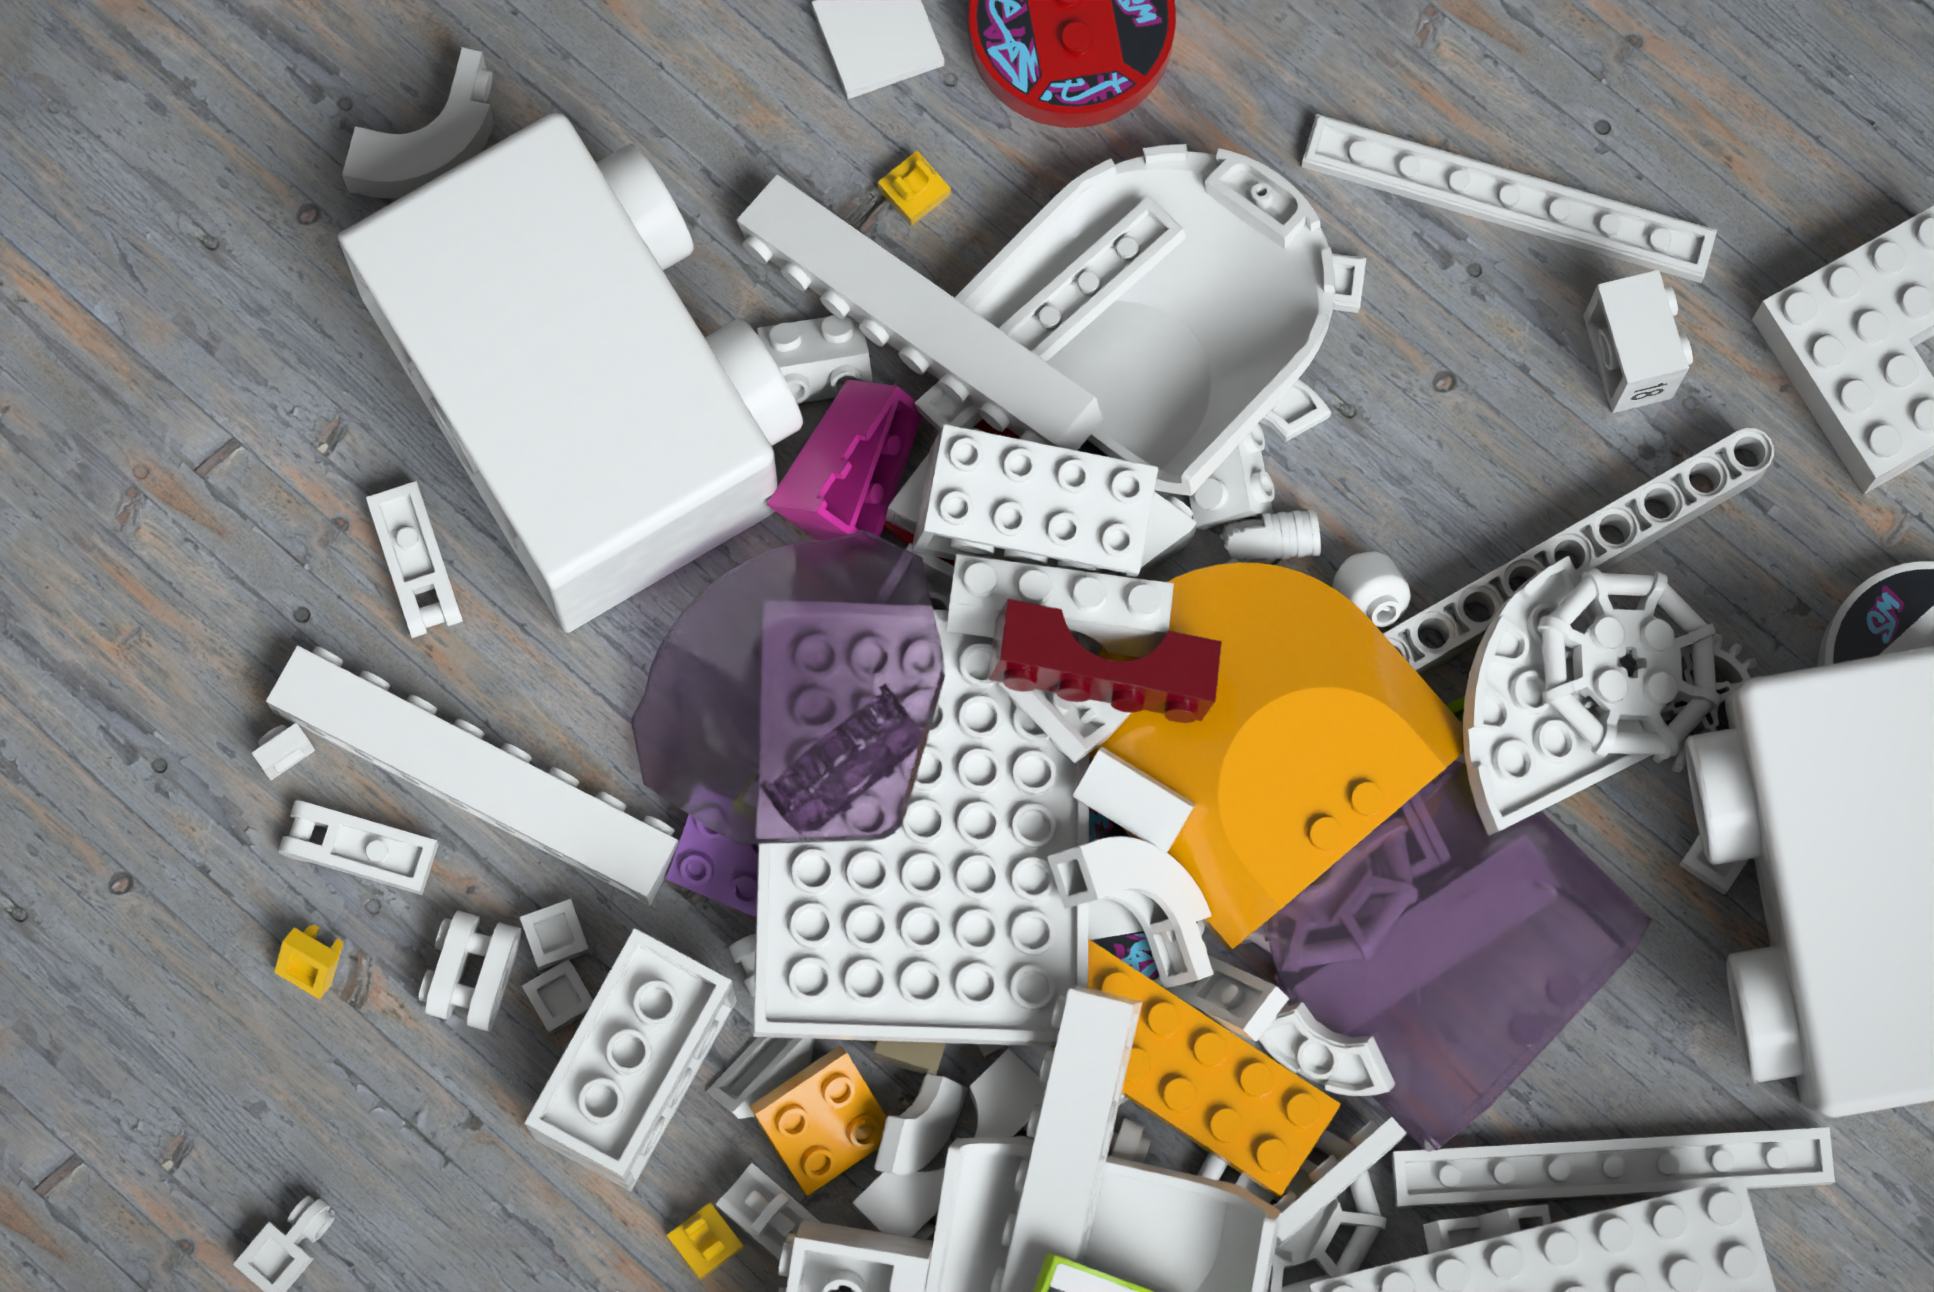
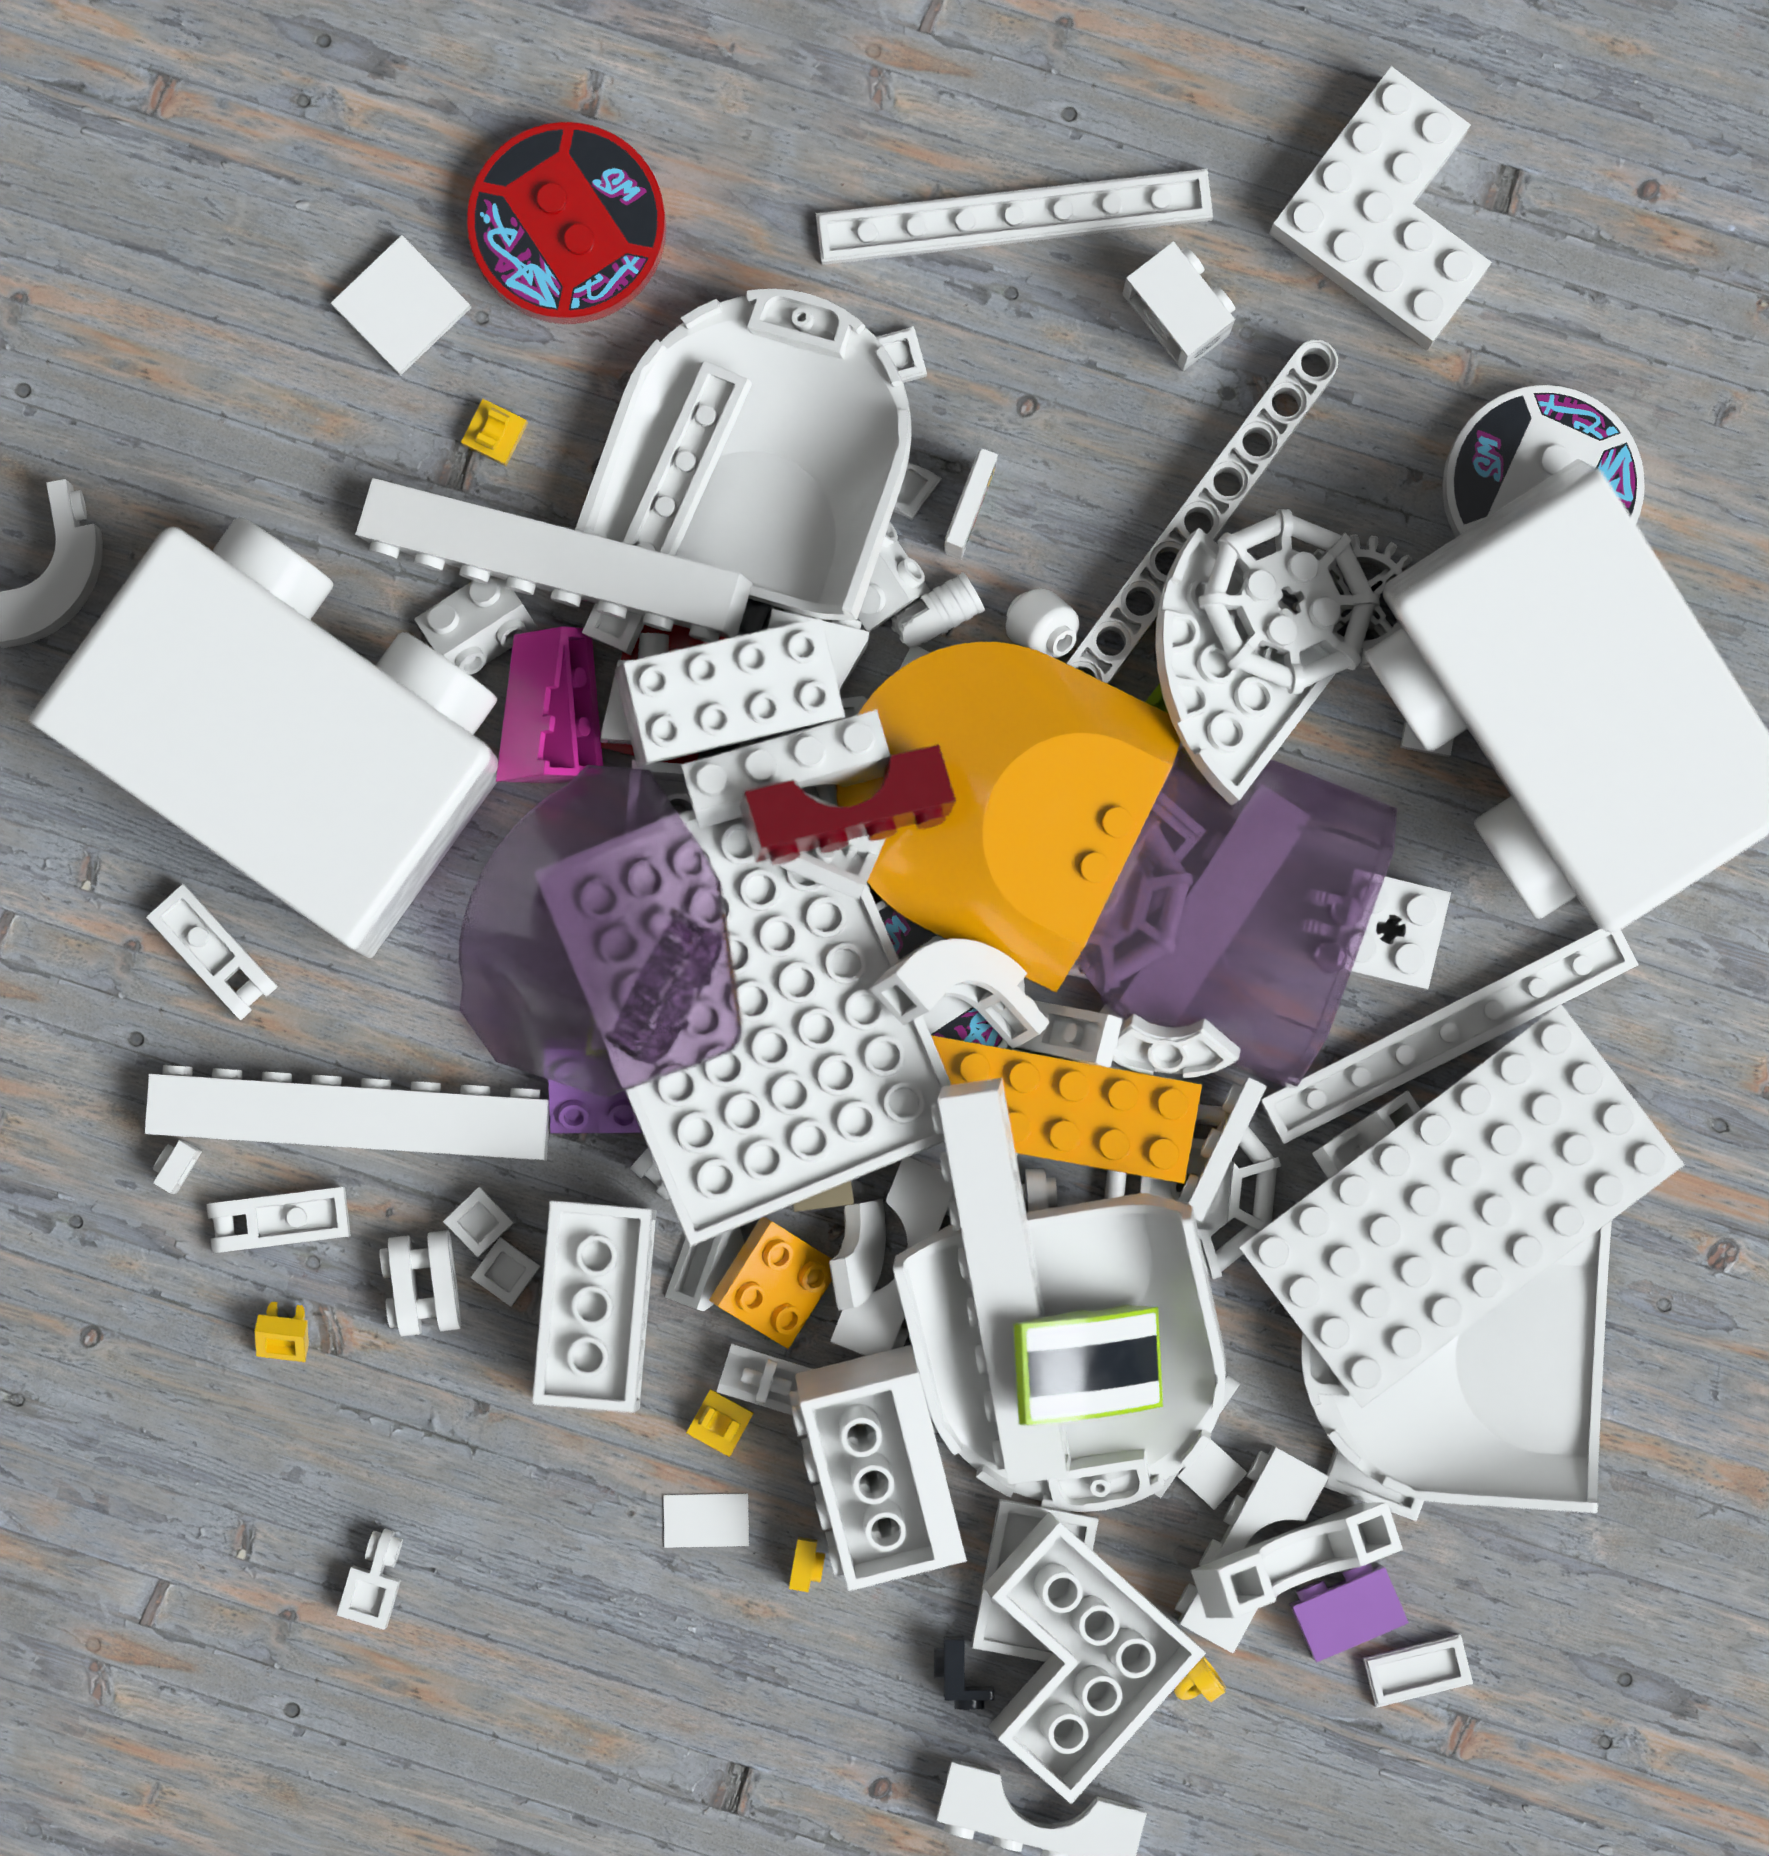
camera: 20 degrees left, 10 degrees up
(1134, 799) = (921, 907): white tile -> none
(1350, 442) = (970, 503): none -> white tile
(1603, 1073) = (1412, 955): none -> white hinge

